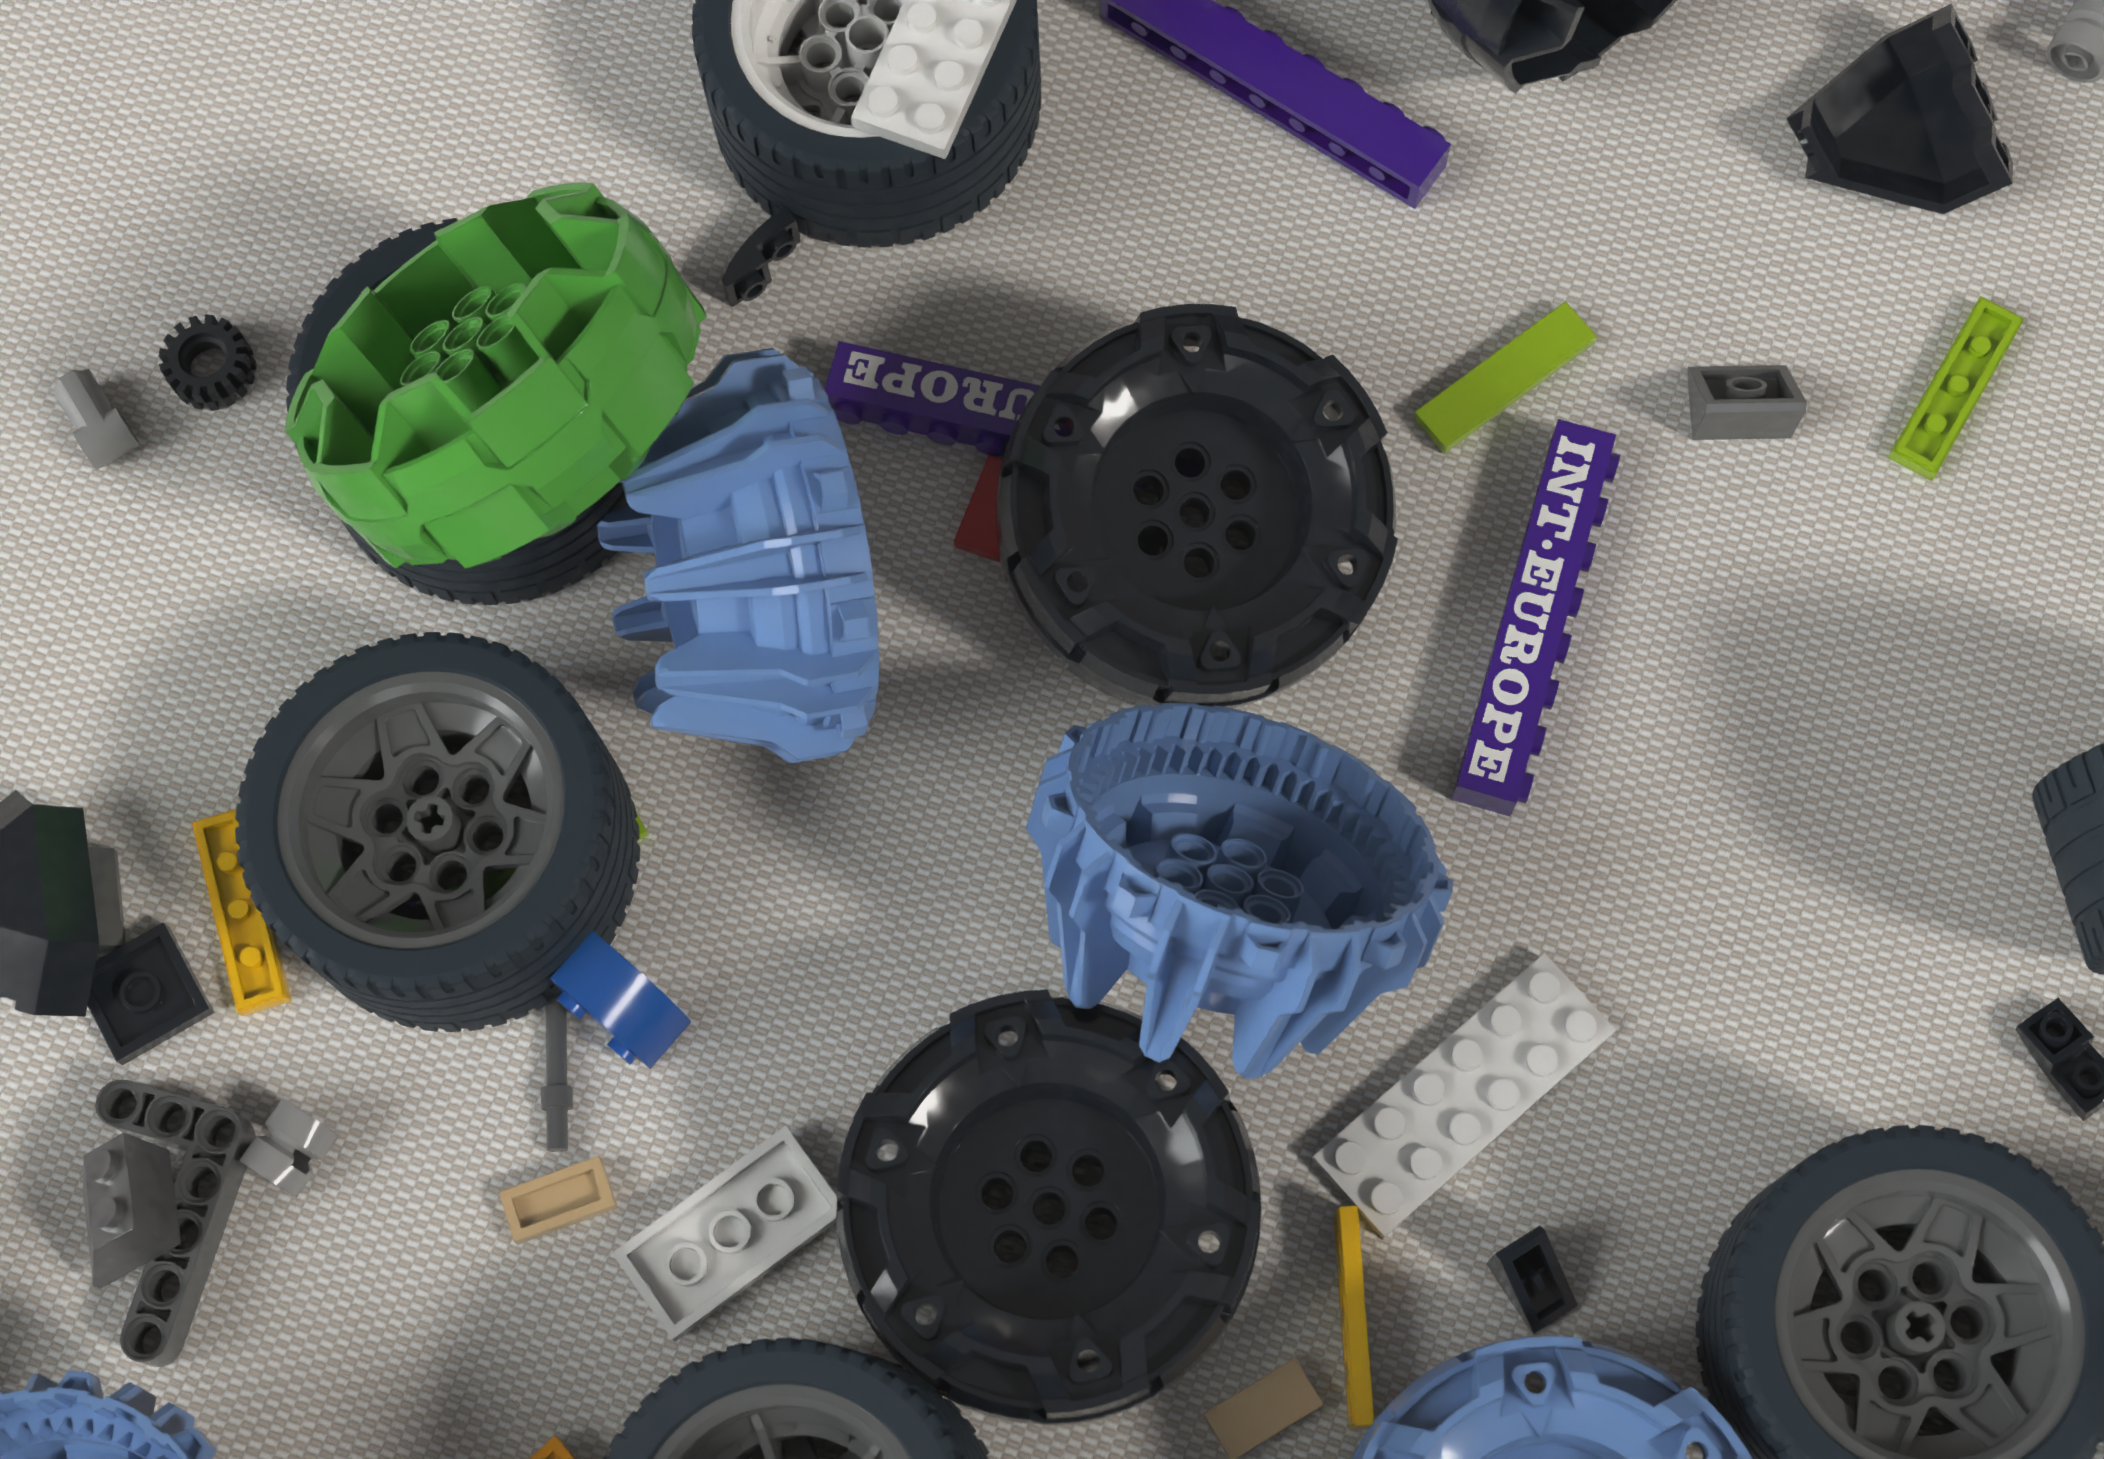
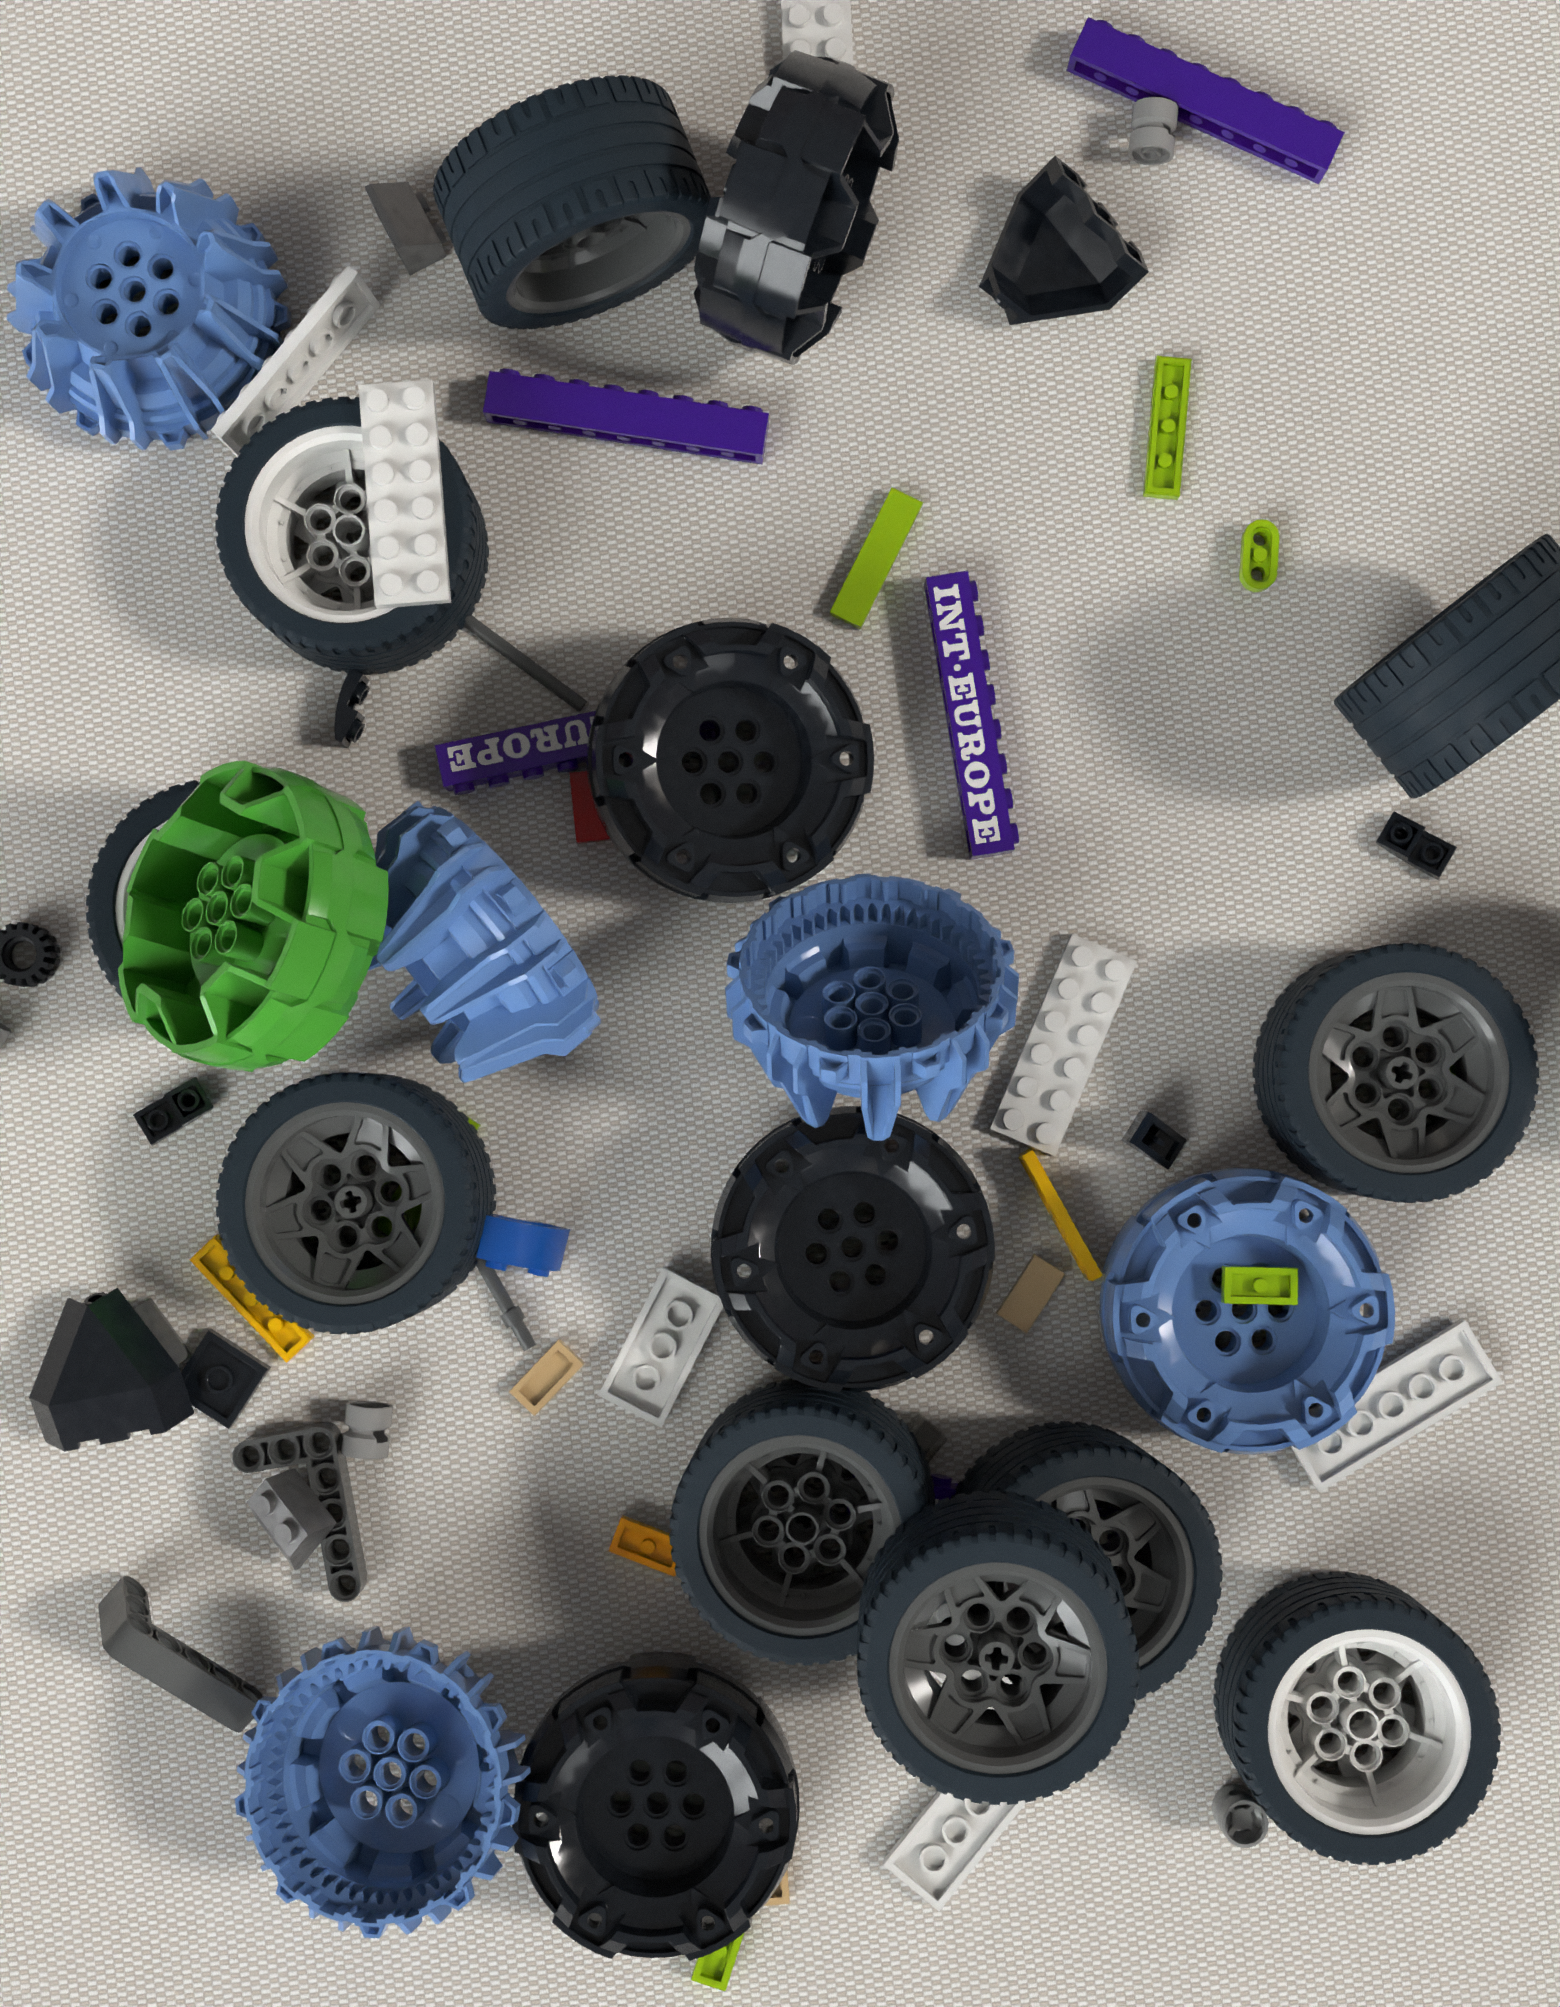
camera: 30 degrees left, 15 degrees up
(278, 634) = (173, 1111): none -> black slope
(999, 302) = (524, 663): none -> dark grey bar
(1744, 402) = (1036, 502): dark grey slope -> none
(2008, 595) = (1257, 557): none -> lime plate

